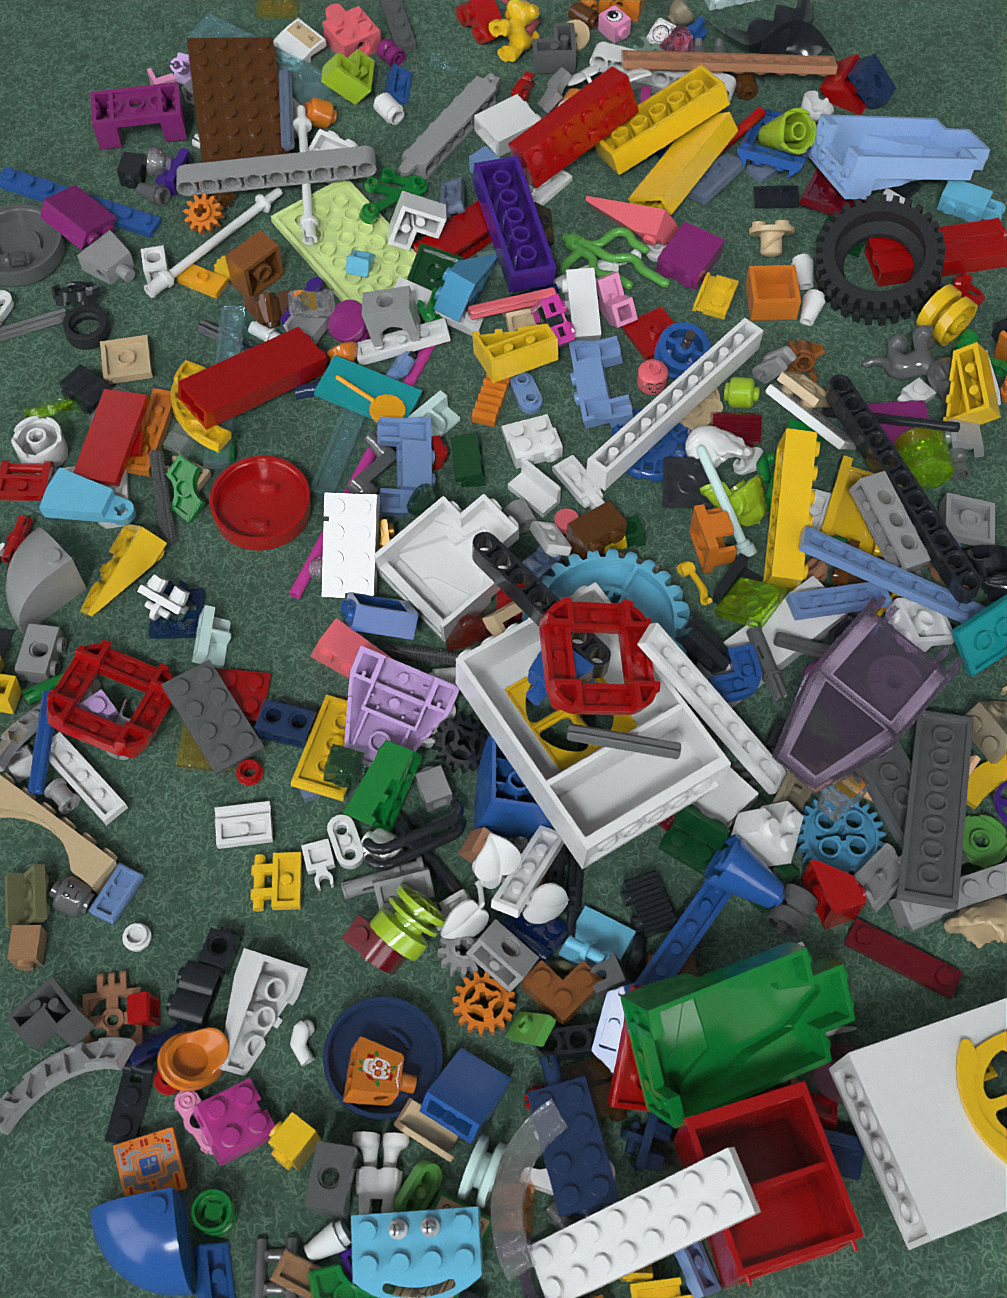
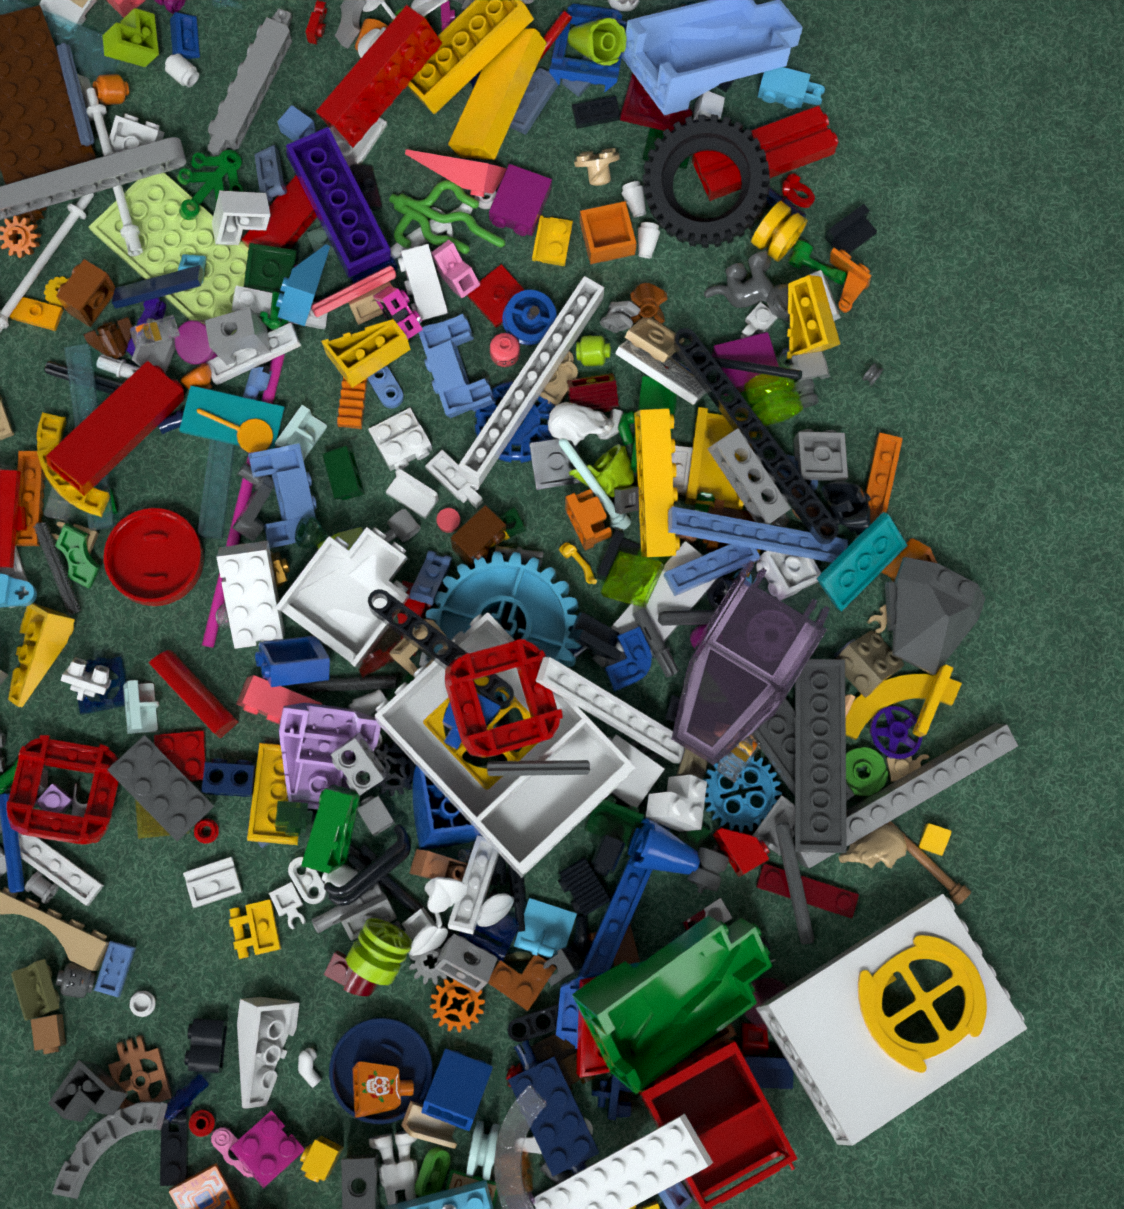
camera: 15 degrees left, 15 degrees up
(143, 1009) = (165, 1068): red slope -> none
(193, 1058) = (218, 1104): orange piece -> none
(214, 938) = (210, 1010): black brick -> none
(269, 634) = (193, 692): none -> red brick
(323, 270) = (157, 287): none -> dark blue tile
(433, 719) = (364, 761): none -> light grey brick
(440, 452) = (314, 470): red plate -> none
(504, 123) = (310, 70): white brick -> none
(530, 1028) = (501, 1021): bright green plate -> none
(550, 538) = (436, 545): white plate -> none
(681, 871) = (607, 855): none -> black brick
(756, 526) = (626, 499): none -> dark grey tile
(890, 943) = (794, 883): none -> dark grey axle

